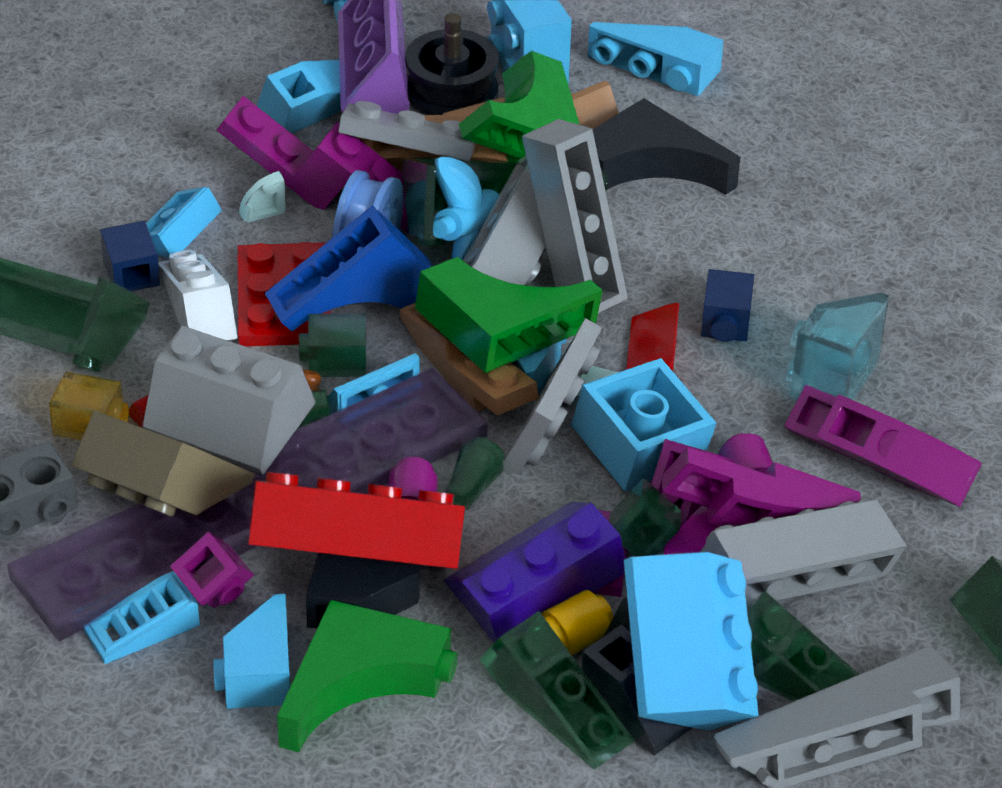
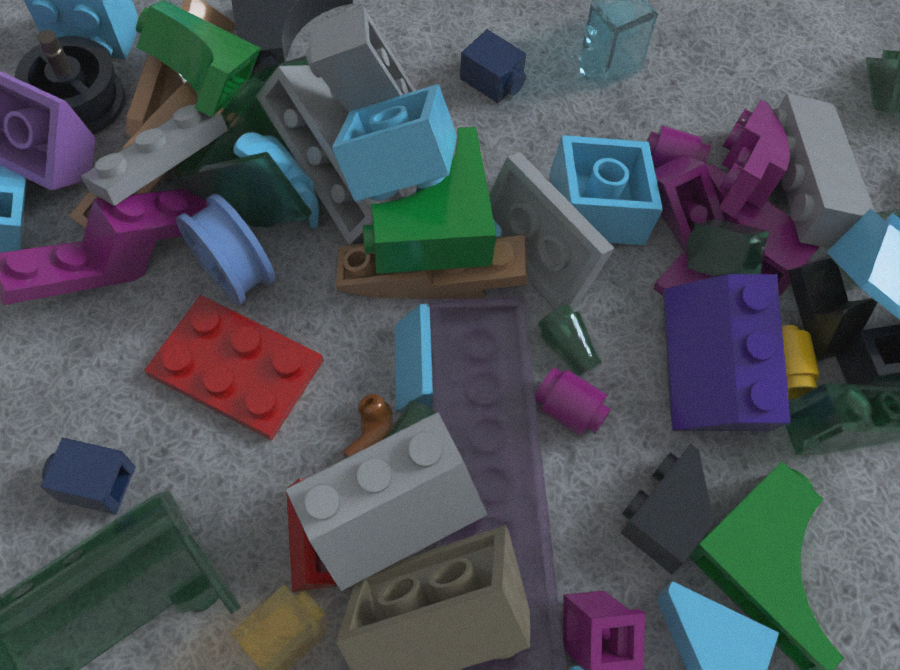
camera: 60 degrees left, 20 degrees up
(182, 219) = (62, 403): medium azure slope -> none
(199, 294) = (194, 442): white slope -> none
(264, 198) = (101, 314): light aqua tile -> none
(335, 344) = (345, 360): clear green brick -> none
(355, 523) = (633, 479): red brick -> none
(358, 265) = (292, 286): blue arch -> none
(521, 239) = (396, 144): none -> medium azure brick
(653, 336) = (500, 131): red slope -> none
(883, 444) = (702, 62): magenta slope -> none

